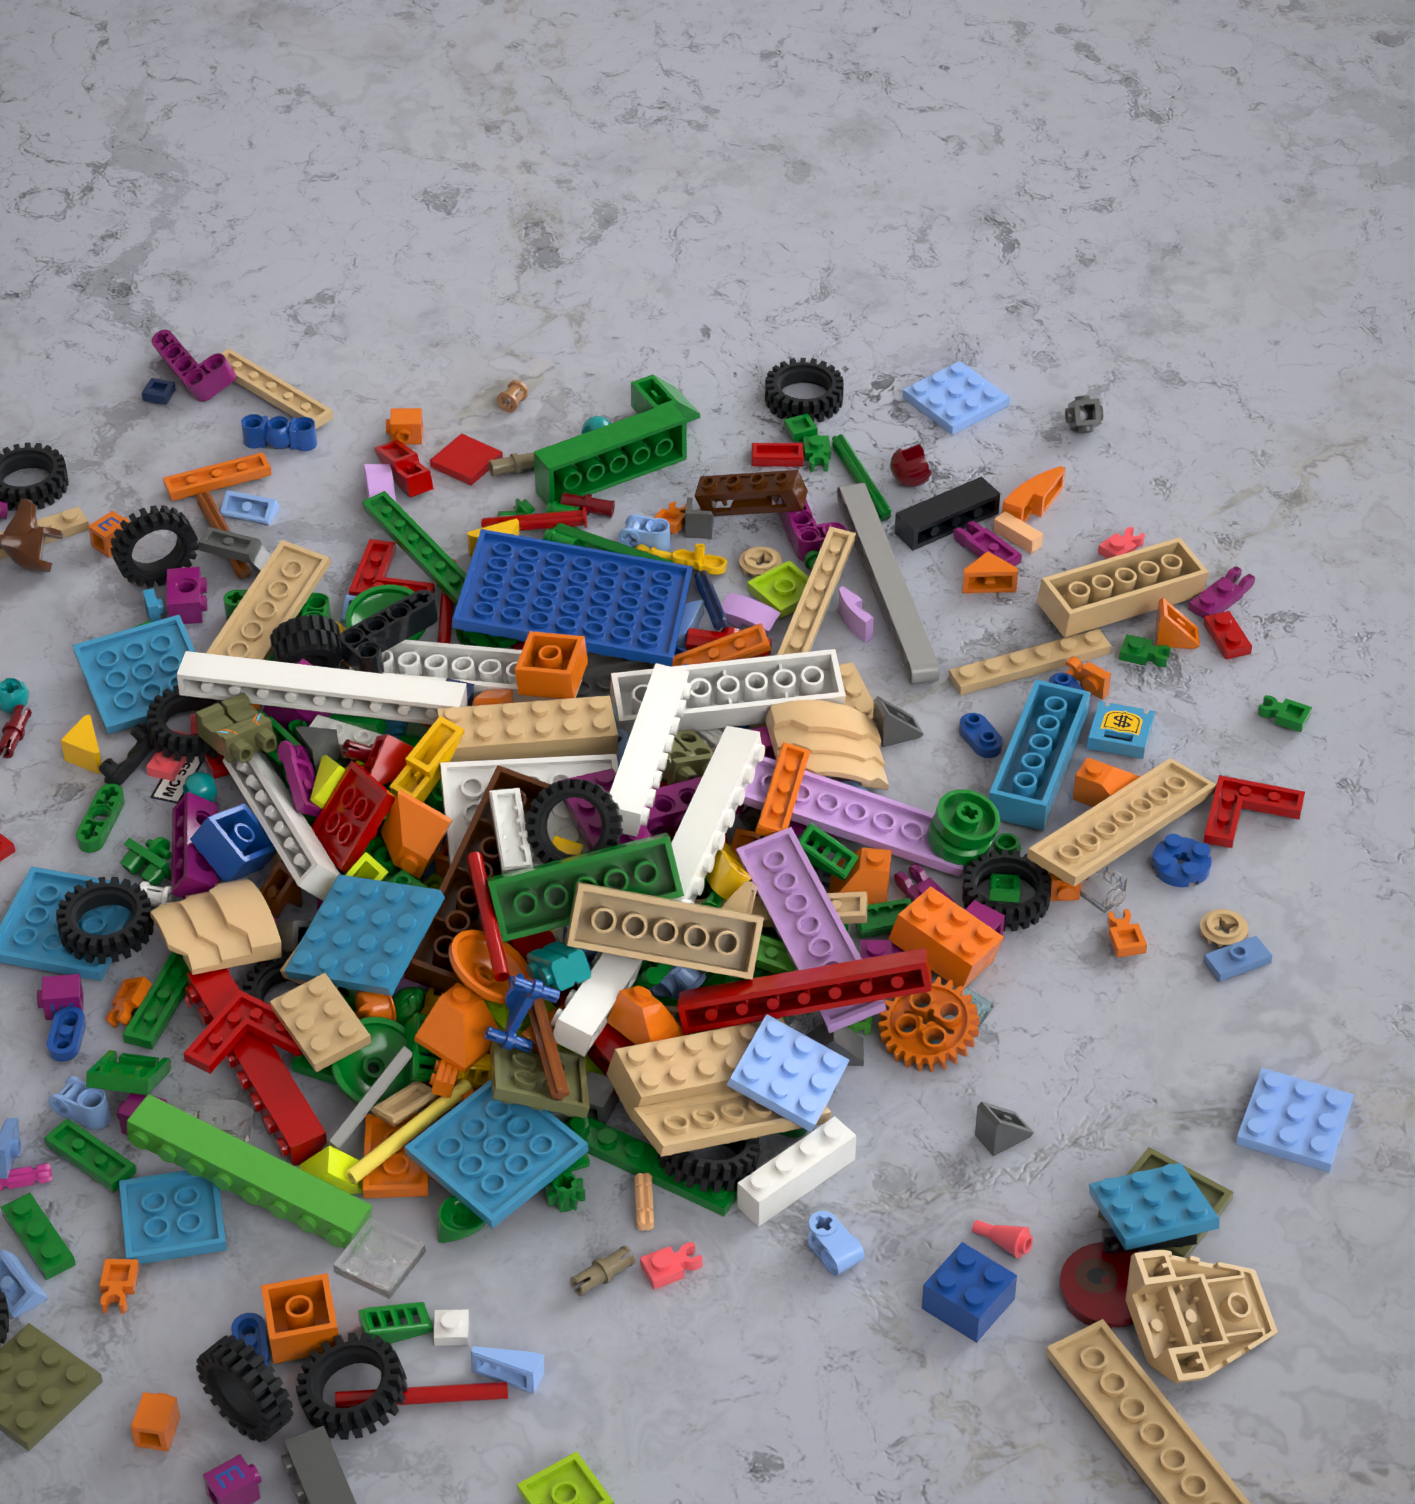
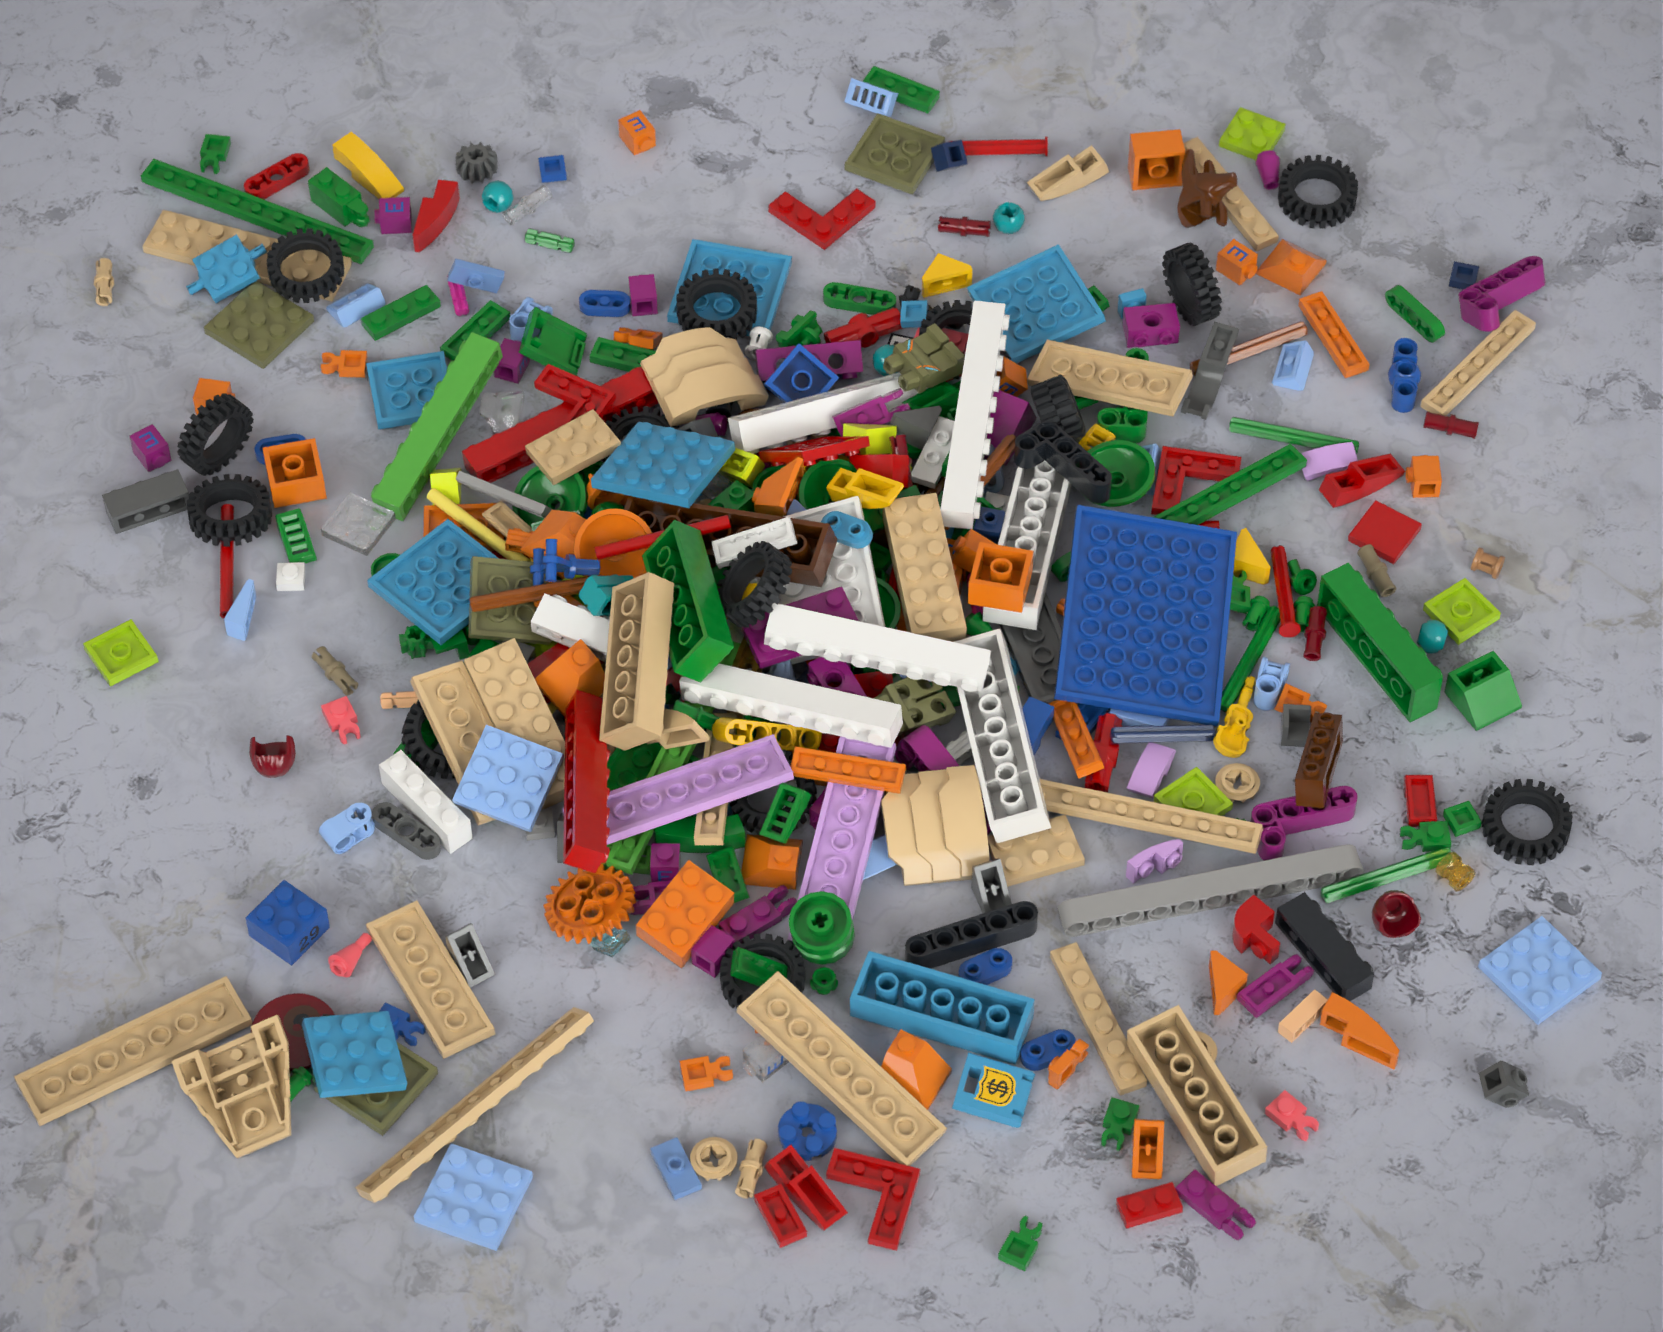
camera: 90 degrees right, 10 degrees up
(123, 496) = (1291, 267): none -> orange slope
(144, 761) = (913, 313): none -> dark azure plate
(149, 807) = (866, 328): none -> red piece
(185, 428) = (1415, 313): none -> green beam
(340, 511) = (1285, 434): none -> green axle
(343, 409) = (1450, 424): none -> dark red pin
(482, 770) = (845, 529): none -> dark azure plate
(564, 414) = (1462, 610): none -> lime plate
(735, 1316) = (272, 758): none -> dark red hair
(832, 1182) = (410, 841): none -> dark grey beam
(861, 432) = (1455, 871): none -> clear yellow wheel
(927, 557) = (1251, 928): none -> red brick
(949, 738) = (981, 926): none -> black beam
(1030, 1162) = (430, 979): none -> tan plate
(1079, 1199) = (402, 1025): none -> blue plate
(1191, 1117) = (473, 1105): none -> tan plate
(1232, 898) = (751, 1168): none -> tan pin
(1248, 859) = (805, 1188): none -> red slope
(1282, 877) = (780, 1215): none -> red plate

